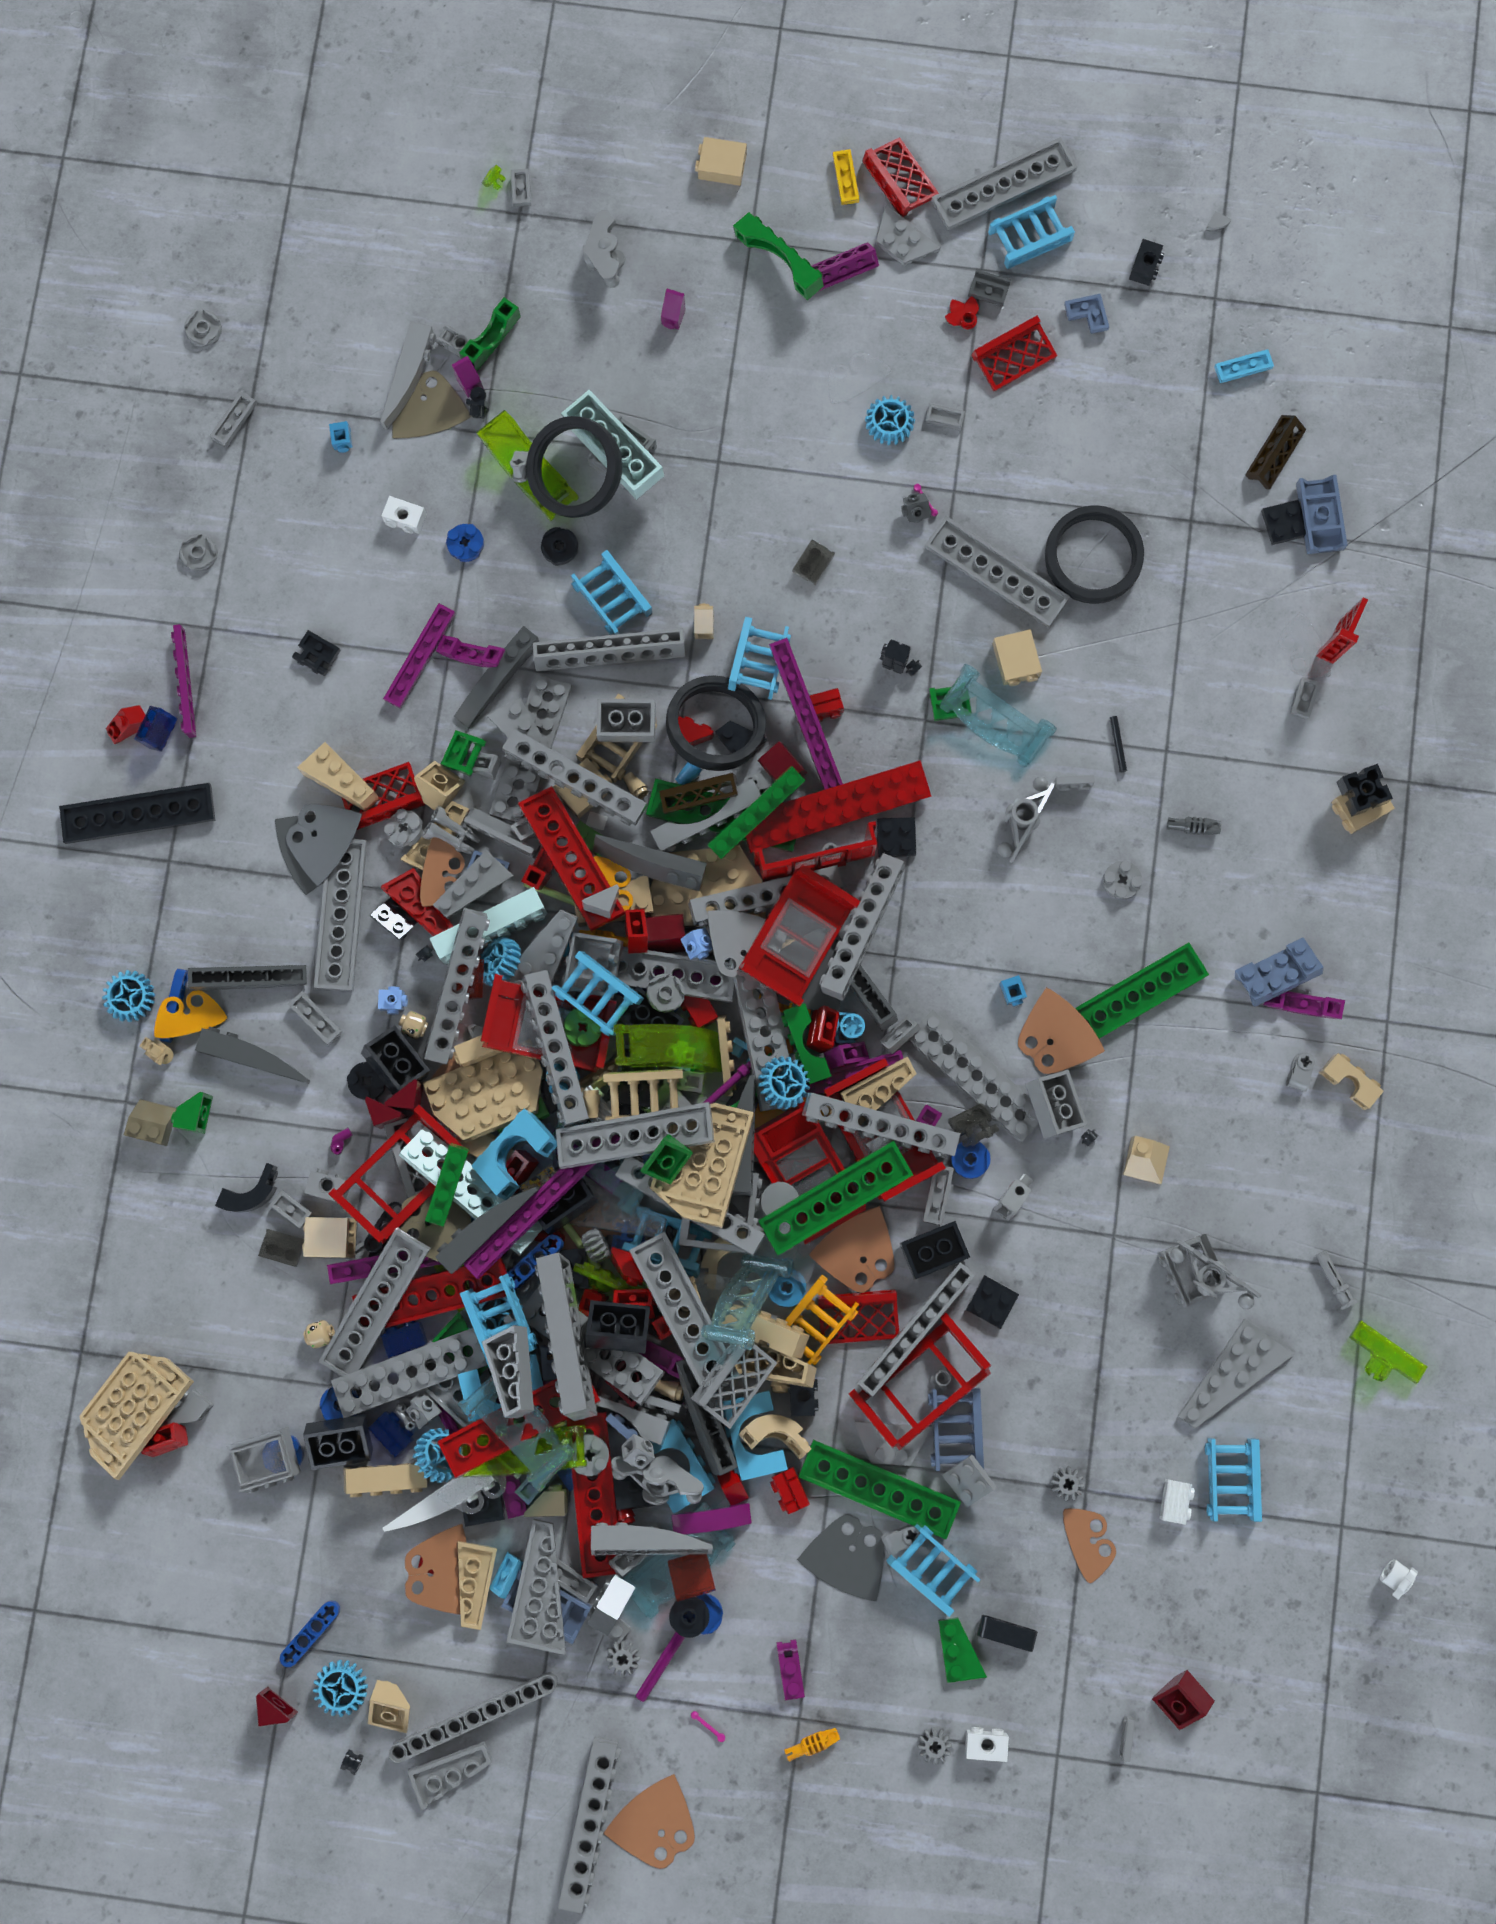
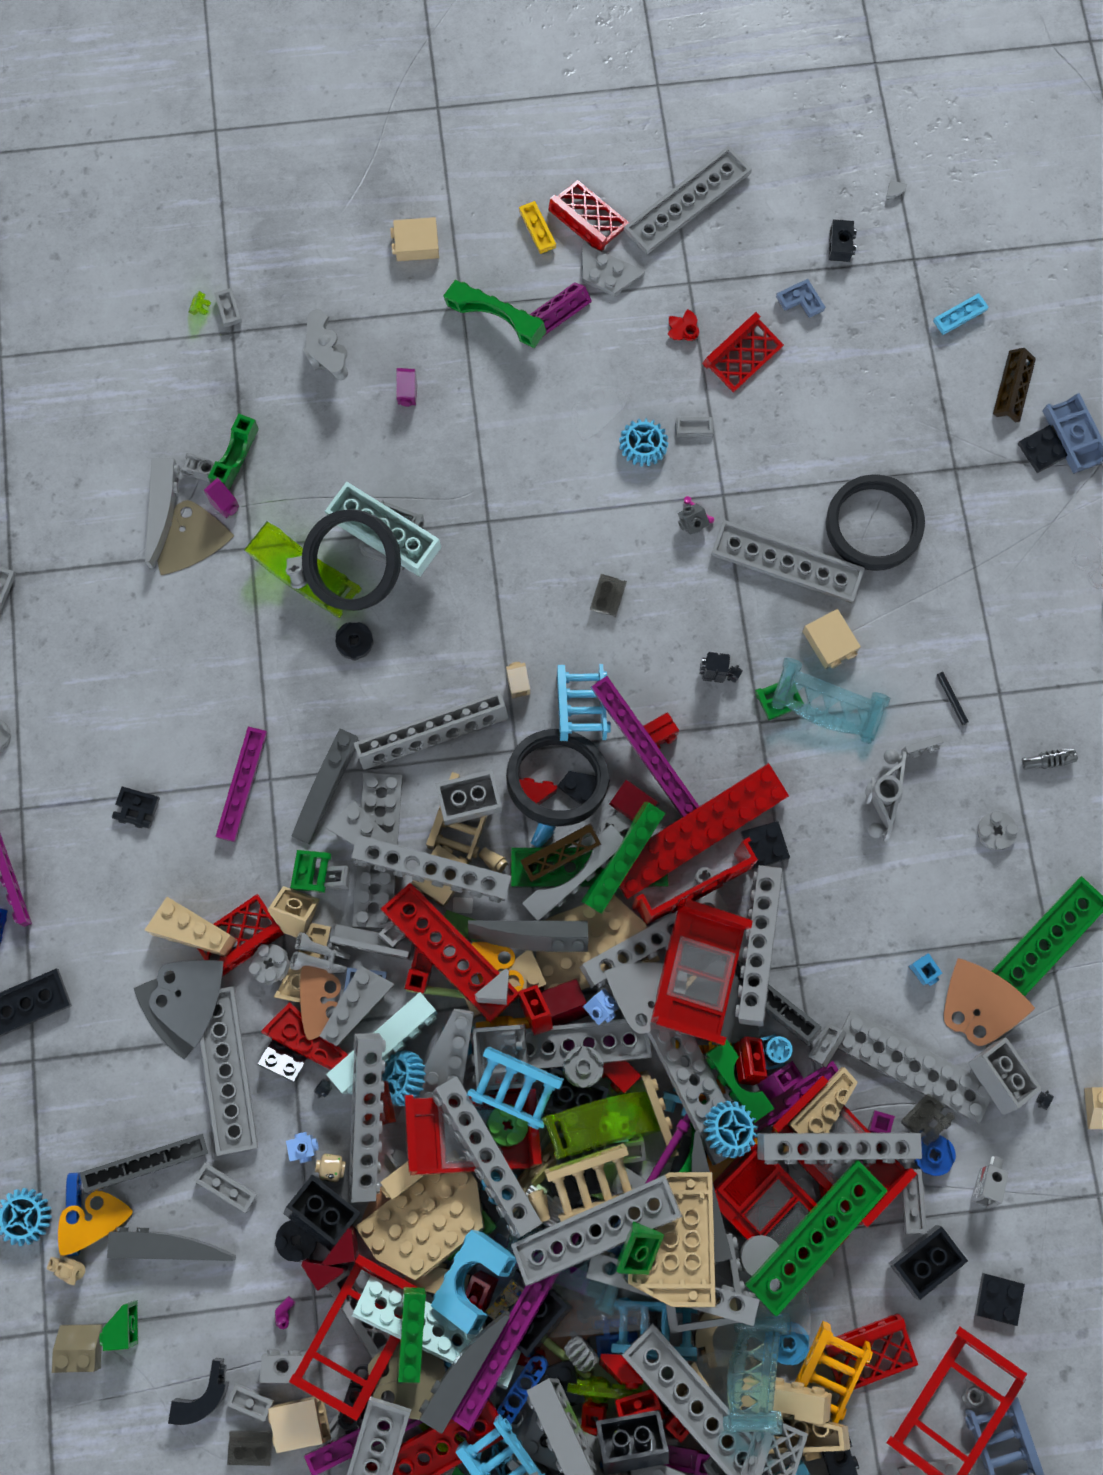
camera: 20 degrees left, 5 degrees down
(339, 431) = (105, 582): dark azure brick -> none
(396, 507) = (182, 642): white brick -> none
(467, 532) = (256, 670): blue plate -> none
(468, 653) = (292, 769): magenta slope -> none
(477, 402) = (238, 520): black hips -> none
(619, 577) = (421, 656): medium azure fence -> none
(858, 1237) = (837, 1278): nougat piece -> none
(915, 1329) = (933, 1354): light grey brick -> none
(989, 287) = (702, 297): dark grey plate -> none
(1030, 249) = (730, 253): medium azure fence -> none

